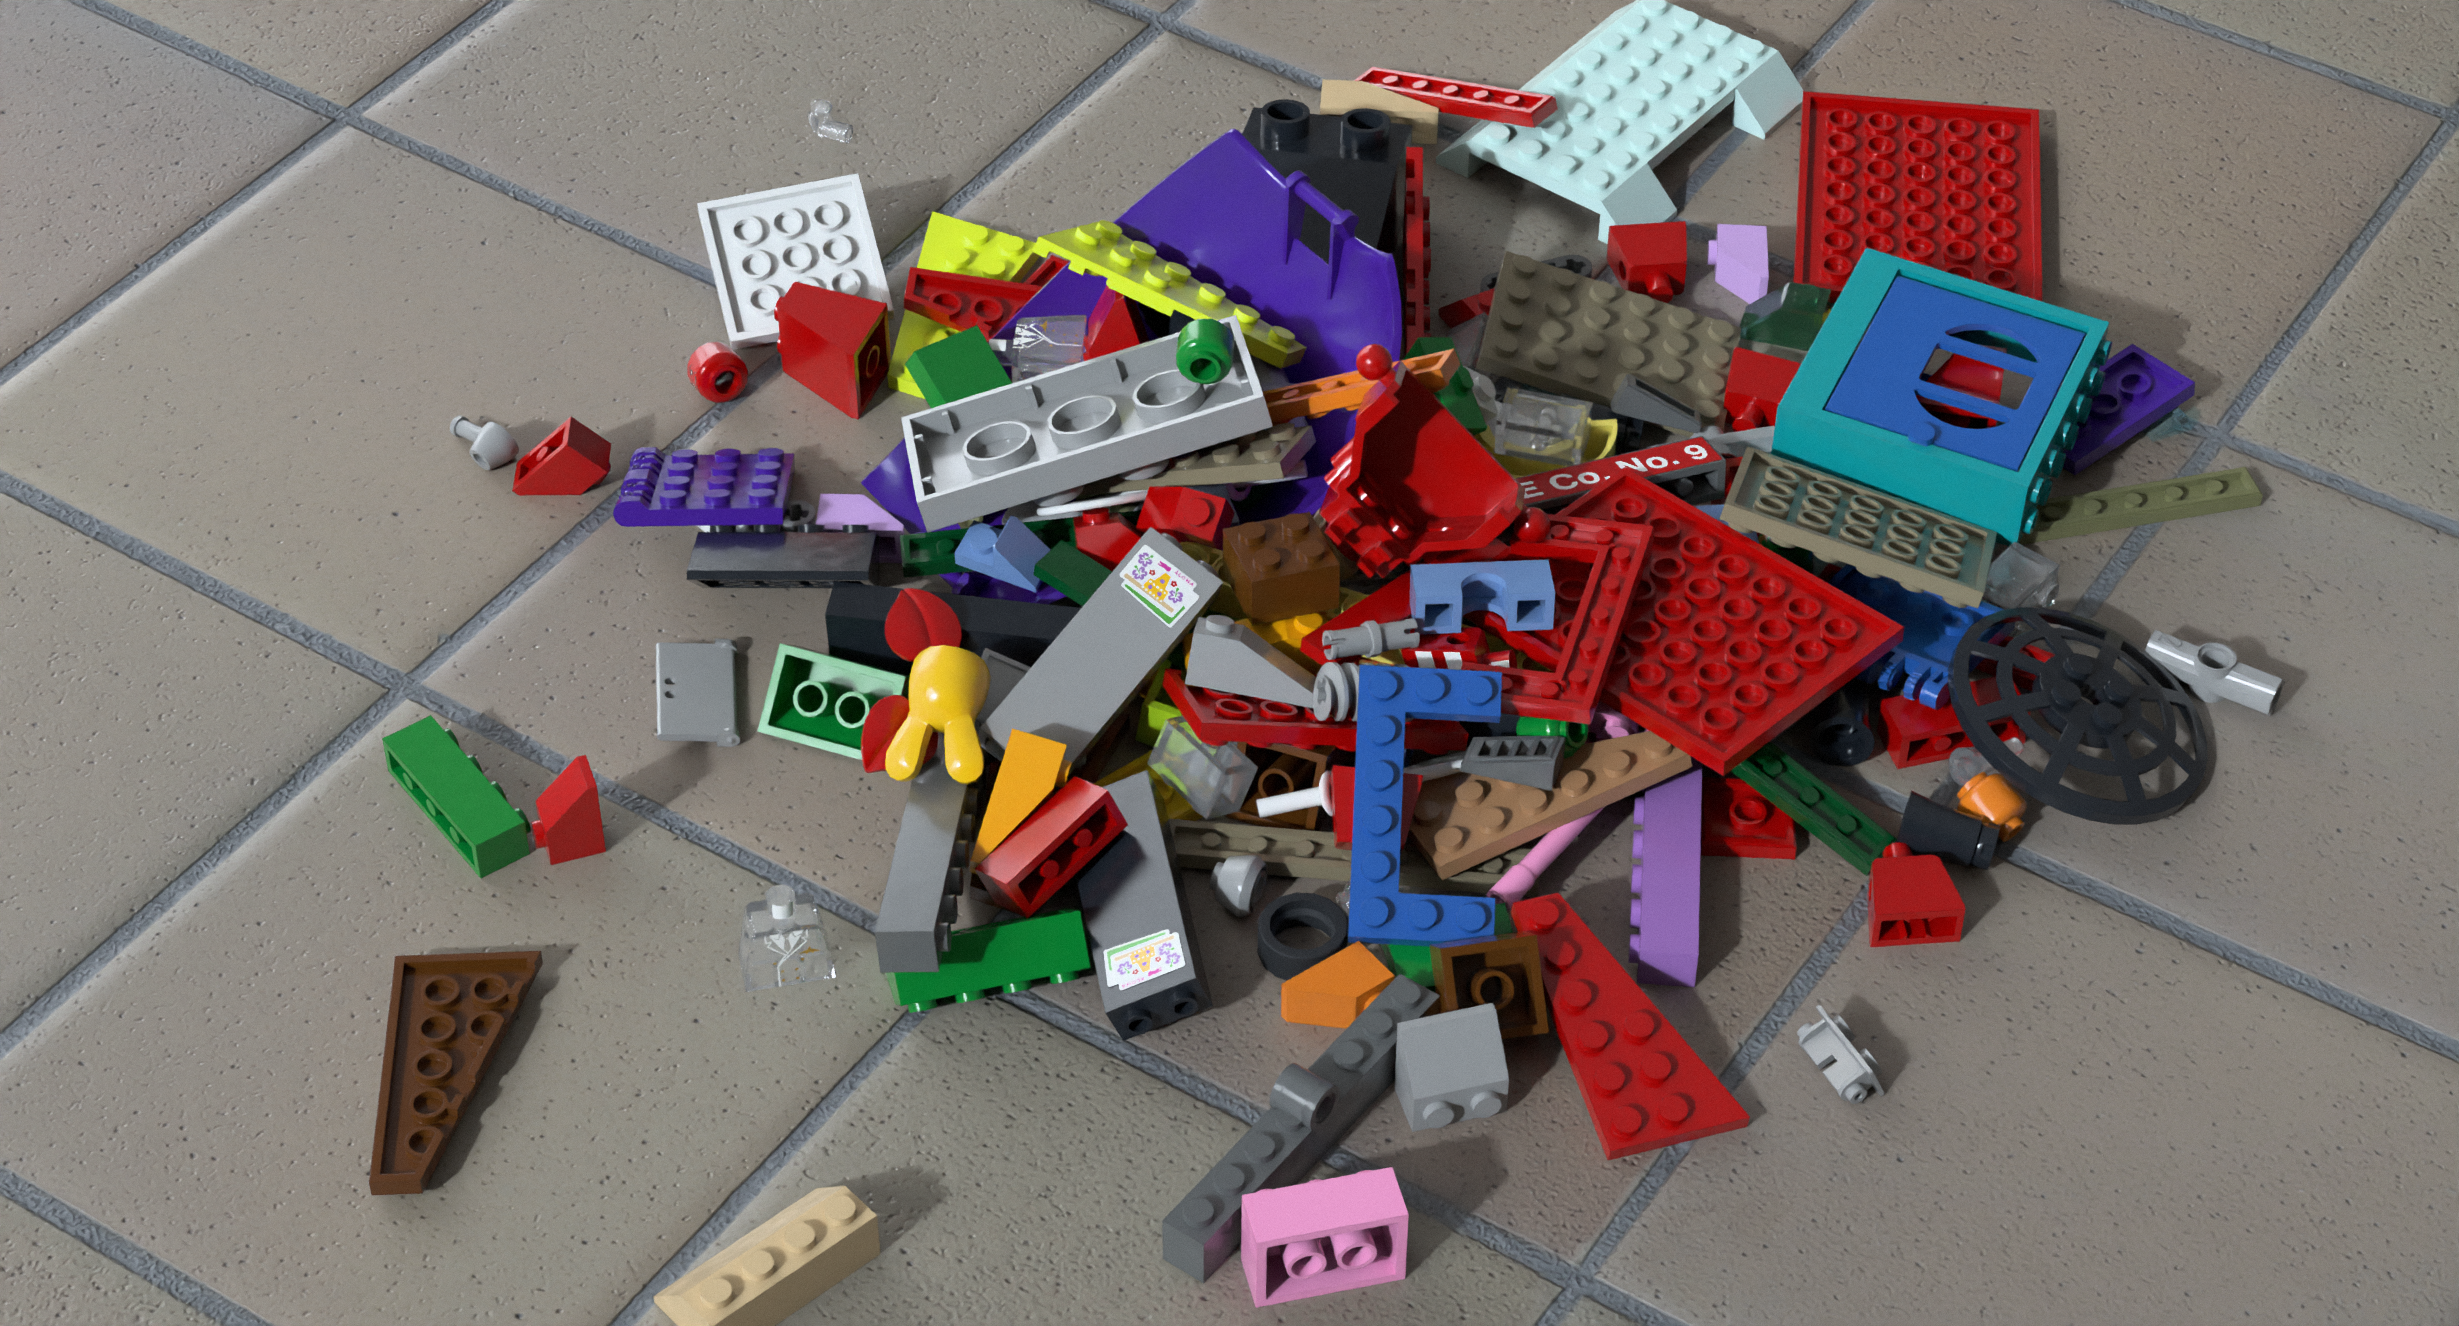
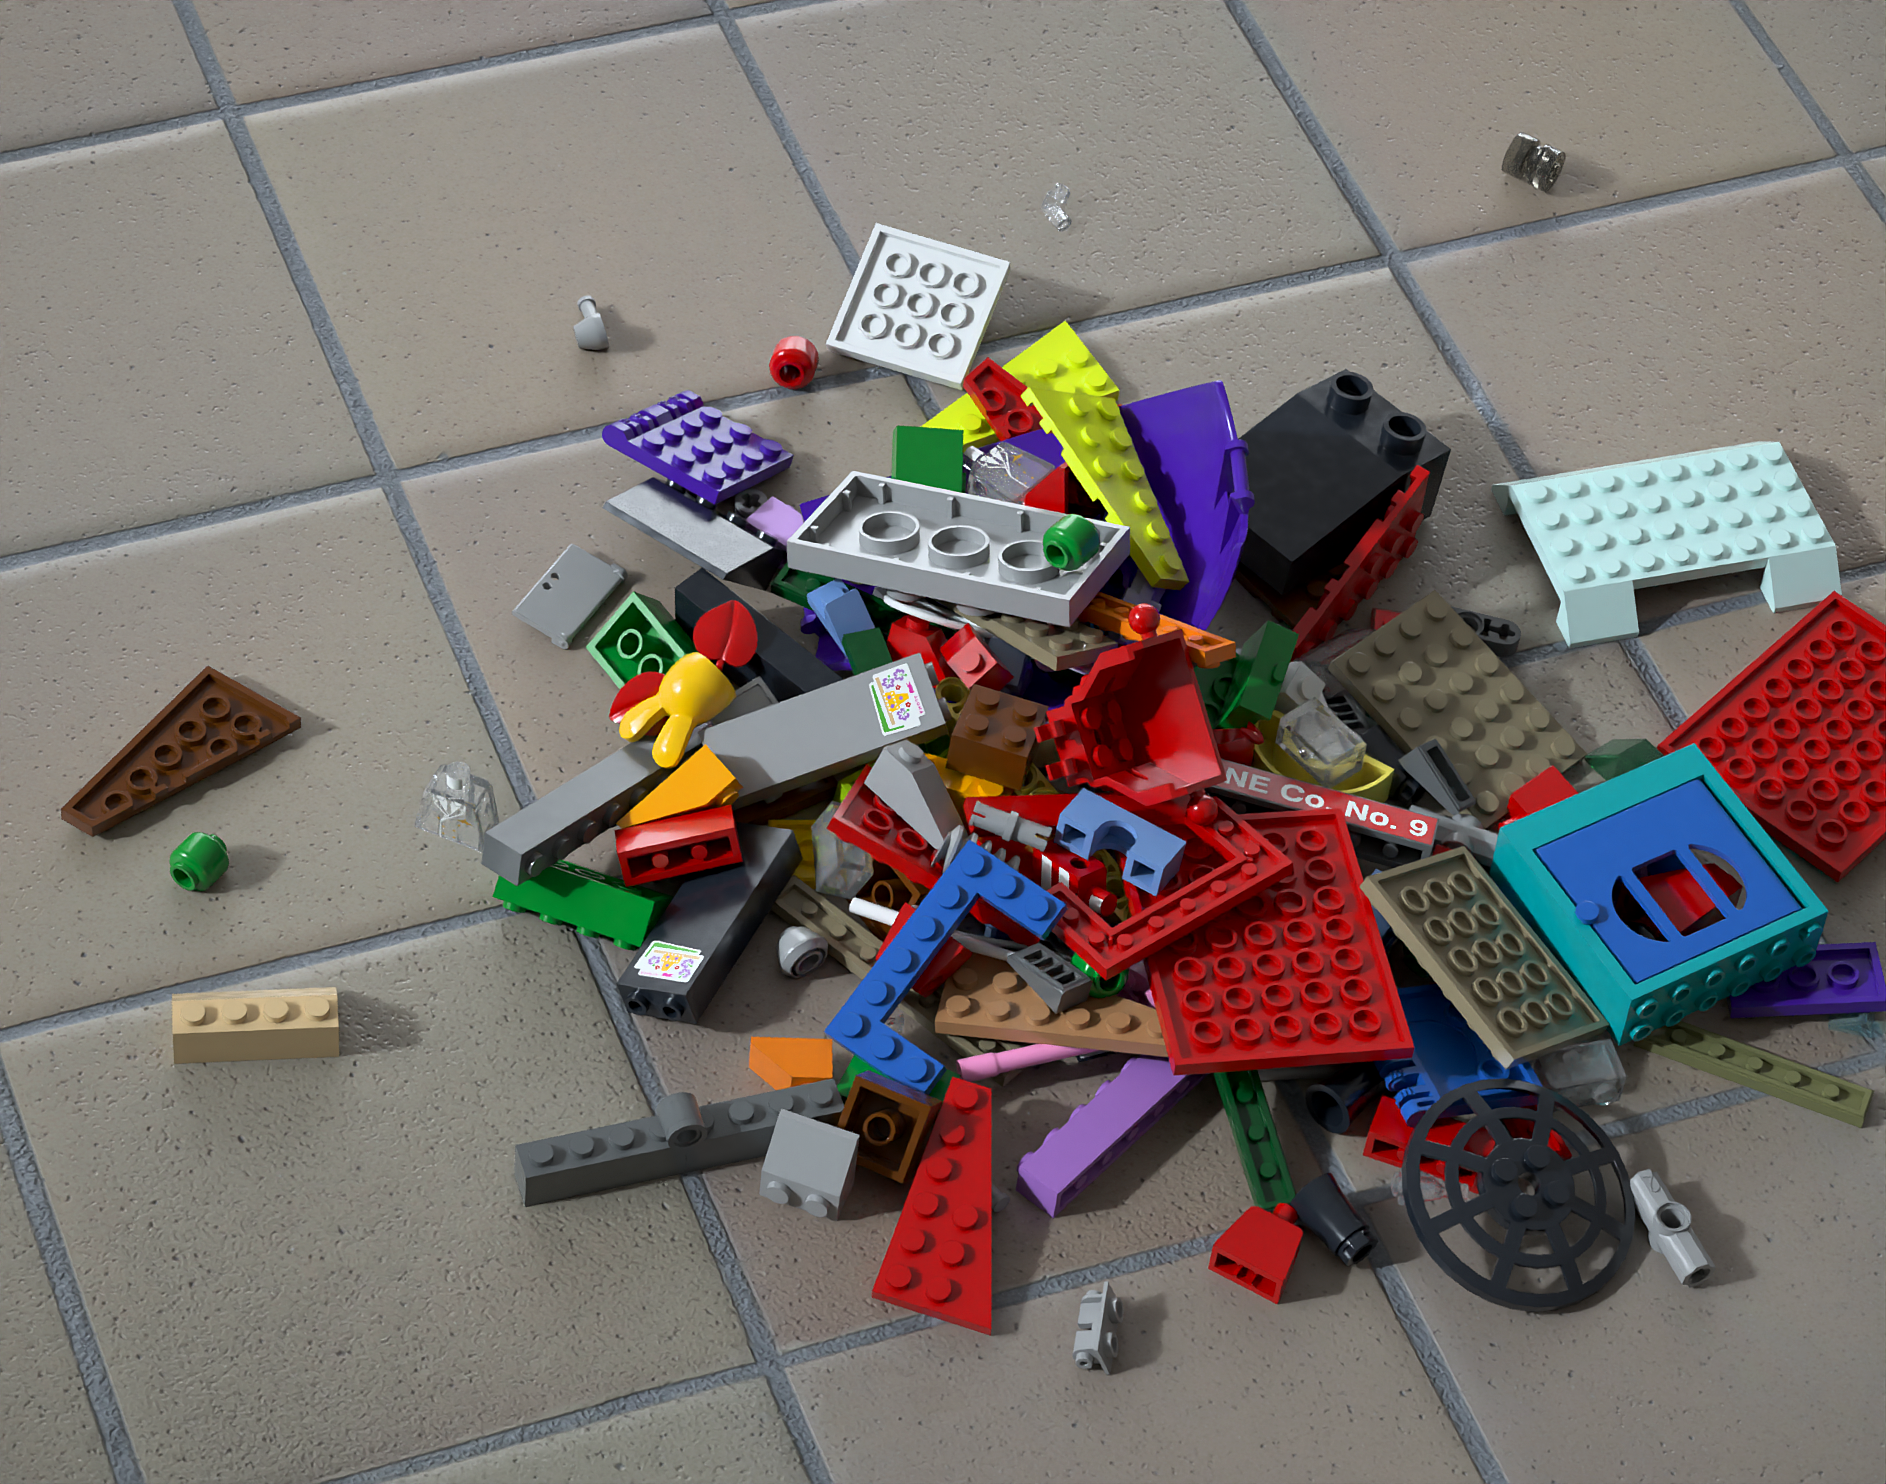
camera: 30 degrees right, 5 degrees up
(457, 796) = (344, 576): green brick -> none
(563, 1149) = (199, 861): none -> green head
(564, 462) = (628, 372): red slope -> none
(570, 815) = (399, 635): red slope -> none
(834, 344) = (887, 387): red slope -> none
(1294, 911) = (803, 990): black tyre -> none
(1324, 1236) = (612, 1223): bright pink brick -> none
(1347, 95) = (1469, 421): tan slope -> none
(1466, 98) = (1536, 443): red tile -> none
(1649, 258) = (1571, 661): red torso -> none
(1740, 260) = (1642, 700): lavender slope -> none
(1743, 822) = (1200, 1124): red tile -> none
(1995, 802) = (1390, 1223): orange head -> none

